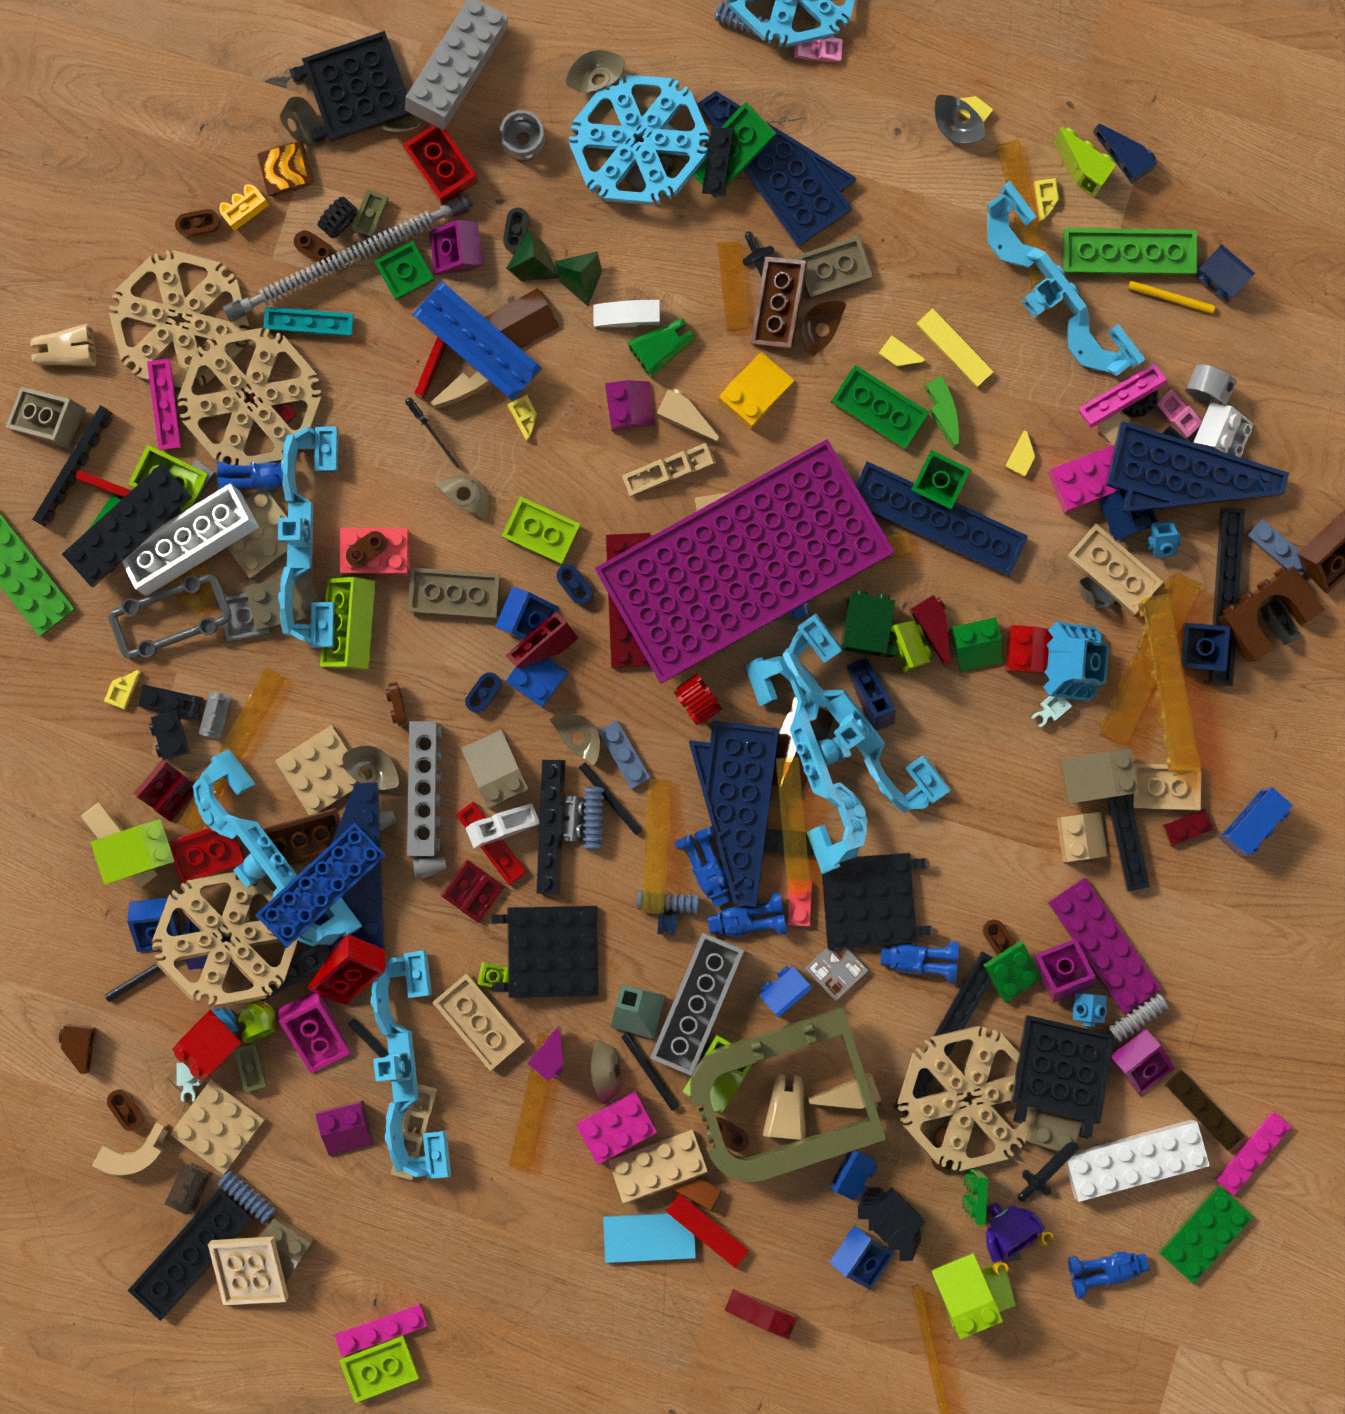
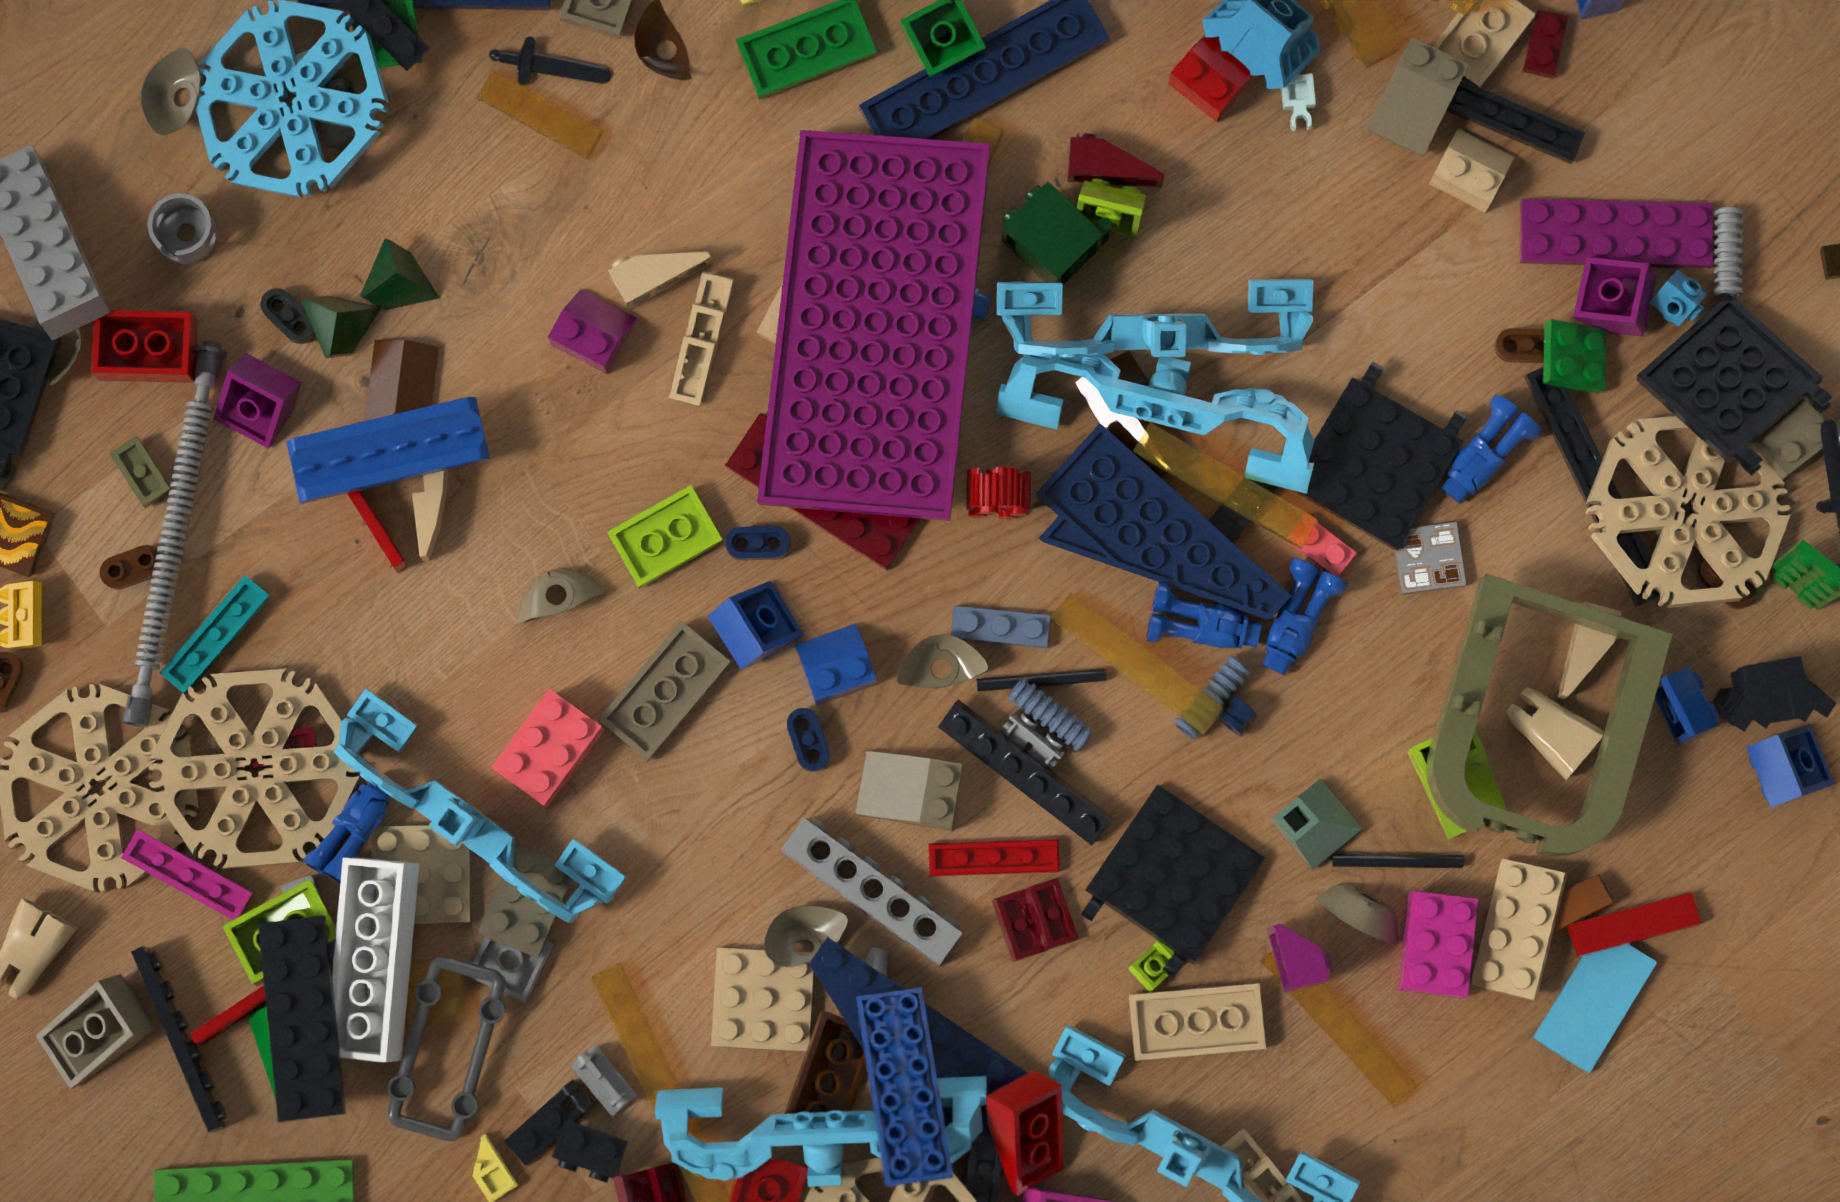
camera: 55 degrees left, 5 degrees down
(337, 217) = (117, 511): black tyre -> none
(353, 623) = (613, 834): lime slope -> none
(367, 551) = (540, 751): reddish brown plate -> none
(367, 1038) = (1124, 1170): black bar -> none
(398, 714) = (761, 857): reddish brown plate -> none
(404, 270) = (238, 479): green plate -> none
(419, 415) = (433, 581): black sword -> none
(428, 866) = (968, 952): light grey cone -> none
(502, 825) = (983, 827): white slope -> none
(524, 415) = (513, 461): light yellow tile -> none
(546, 641) = (801, 624): dark red slope -> none
(627, 313) = (483, 257): white slope -> none
(660, 346) = (549, 247): green piece -> none
(697, 1004) = (1357, 746): light grey brick -> none
(729, 1131) = (1536, 812): reddish brown plate -> none
(755, 390) = (682, 174): yellow slope -> none
(761, 1313) = (1776, 930): dark red slope -> none
(778, 303) = (600, 75): reddish brown slope -> none
(784, 990) = (1413, 633): slope -> none
(871, 695) = (1136, 290): dark blue slope -> none
(977, 644) = (1163, 130): green slope -> none
(1142, 1062) = (1782, 283): magenta slope -> none

